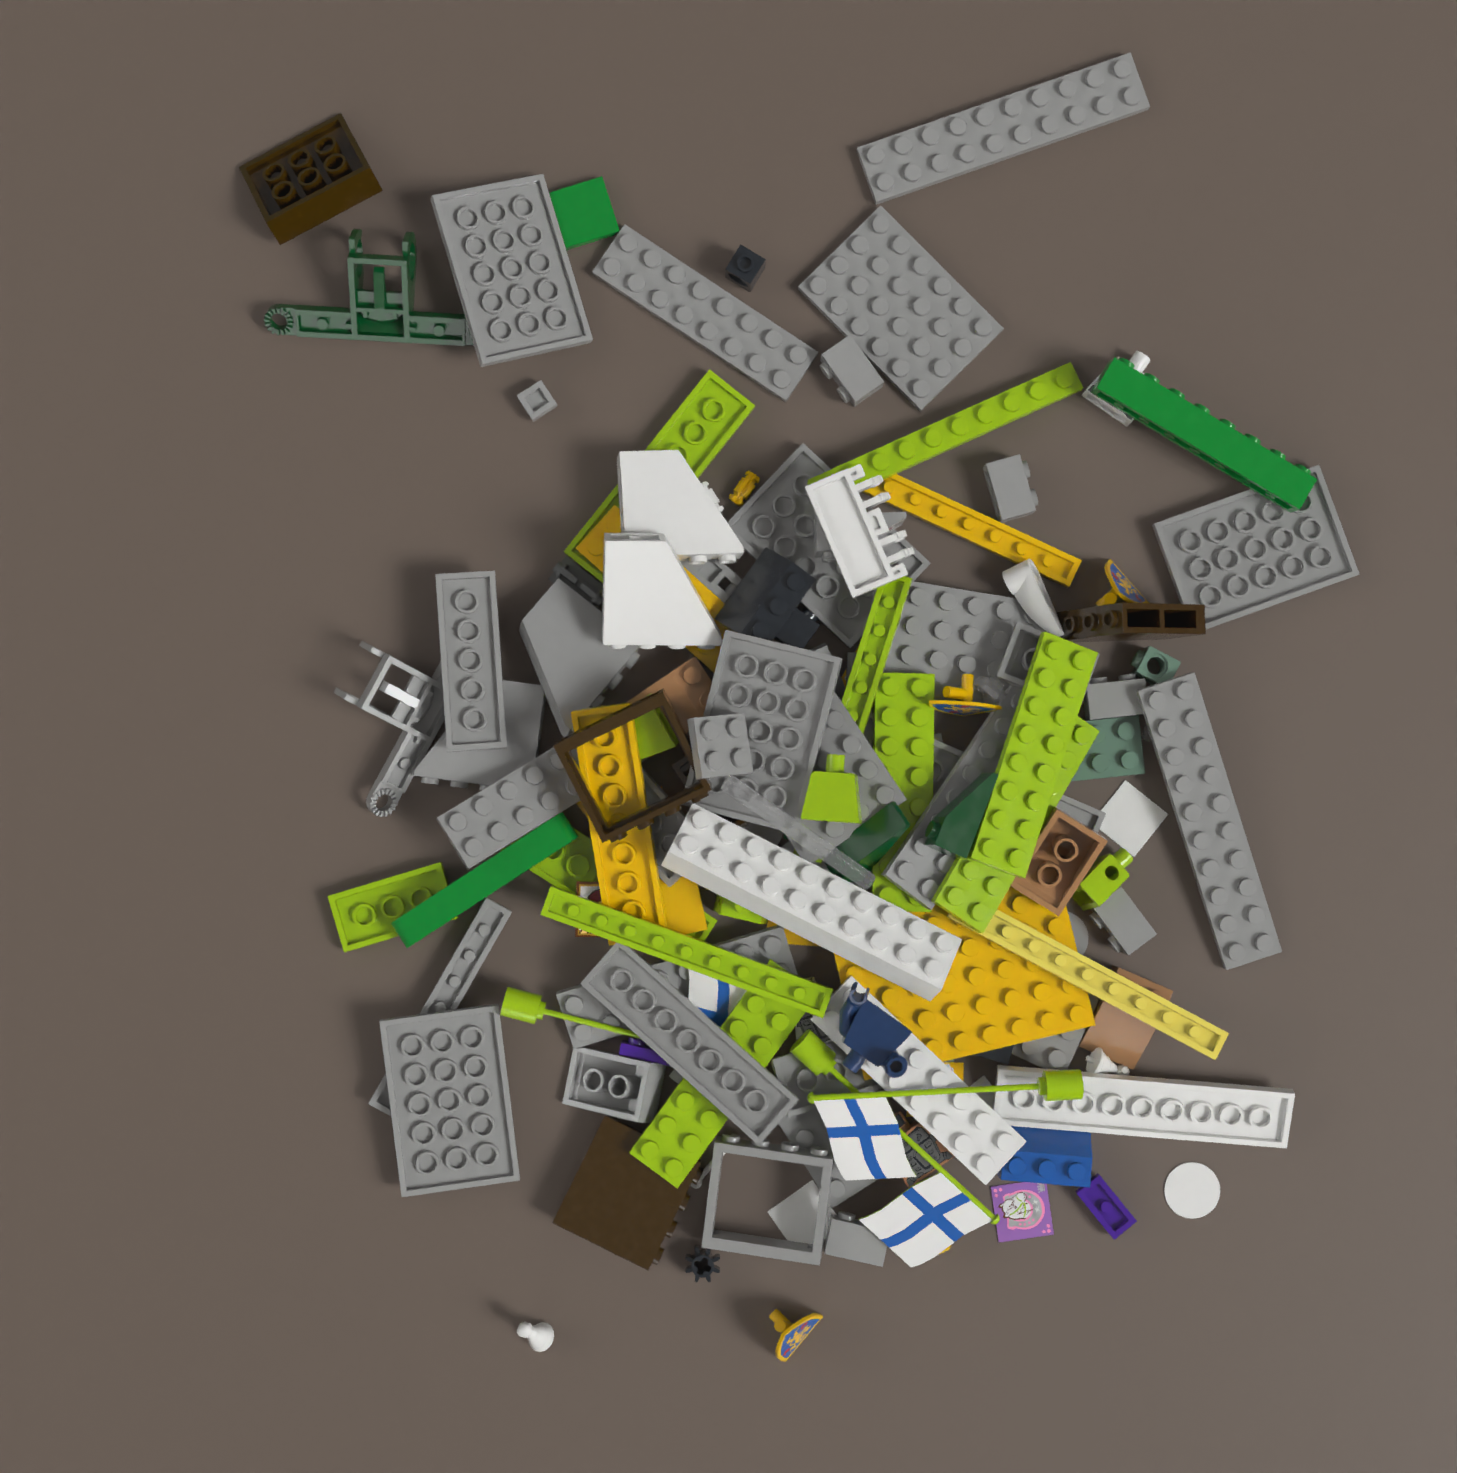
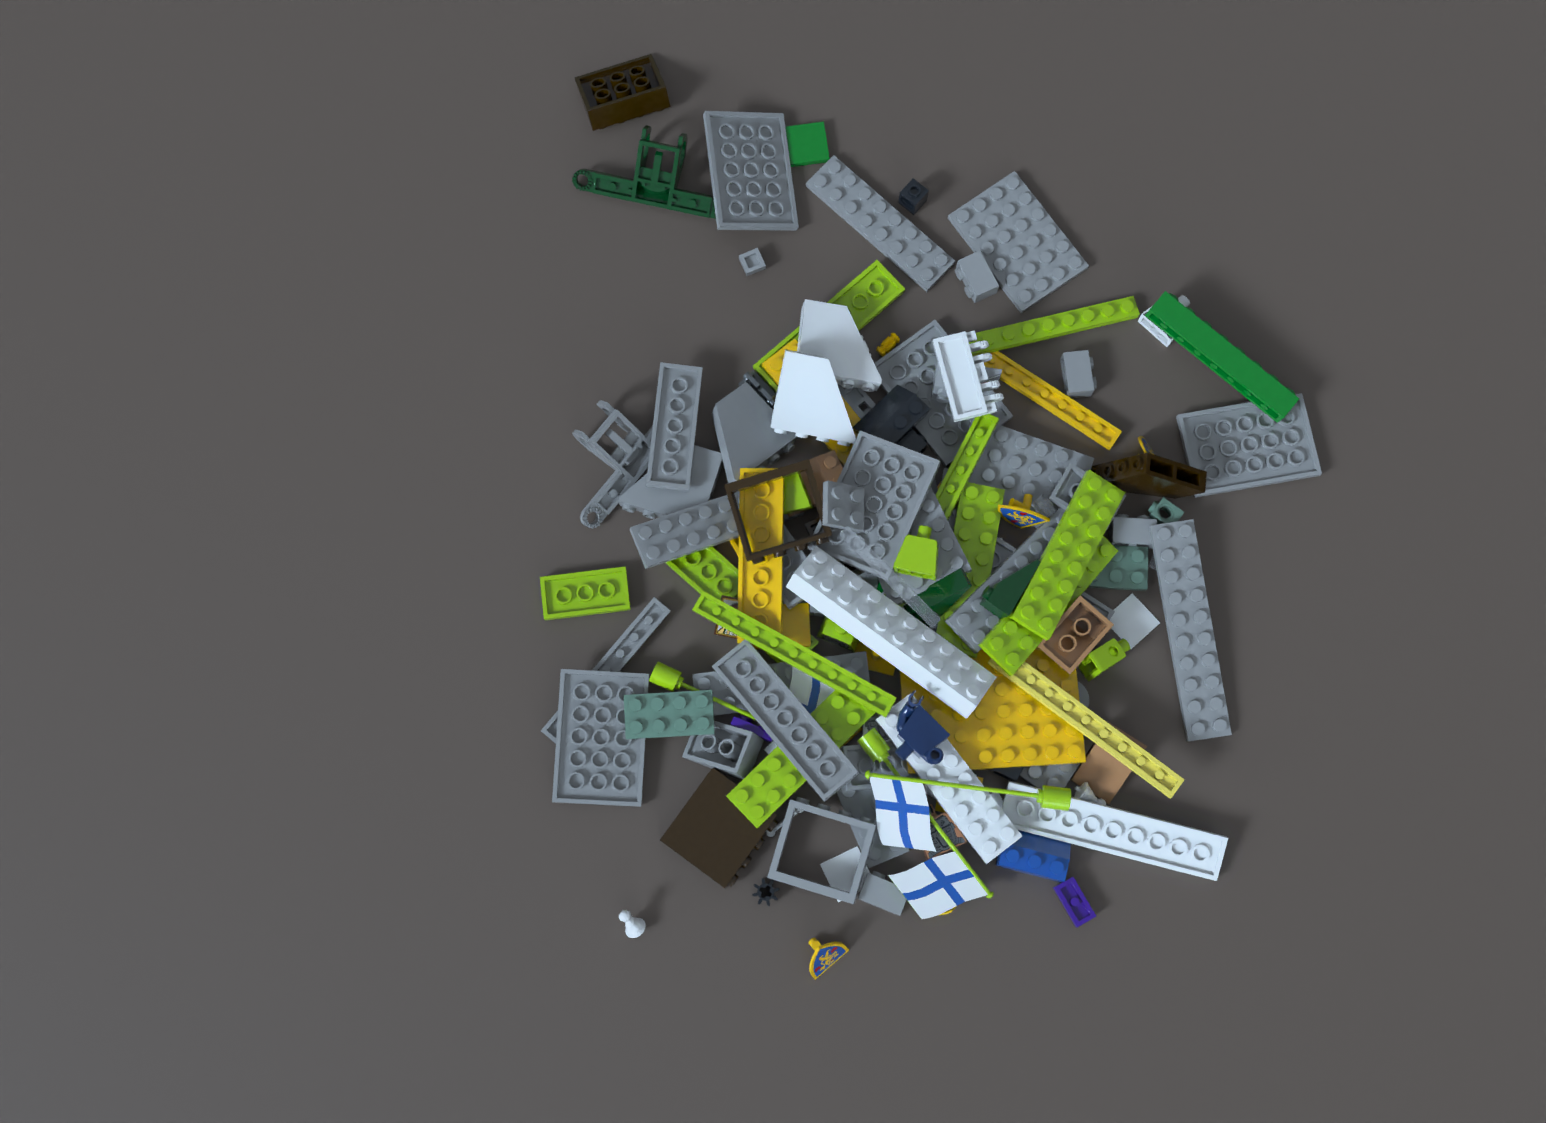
camera: 10 degrees right, 10 degrees down
(484, 880) = (655, 582): green beam -> none
(534, 1056) = (669, 714): none -> sand green plate
(1003, 128) = (1107, 134): light grey plate -> none
(1022, 1211) = (1011, 896): sticker -> none
(1029, 590) = (1081, 444): white piece -> none
(1123, 922) = (1115, 692): light grey brick -> none
(1192, 1190) = (1141, 903): white sticker -> none

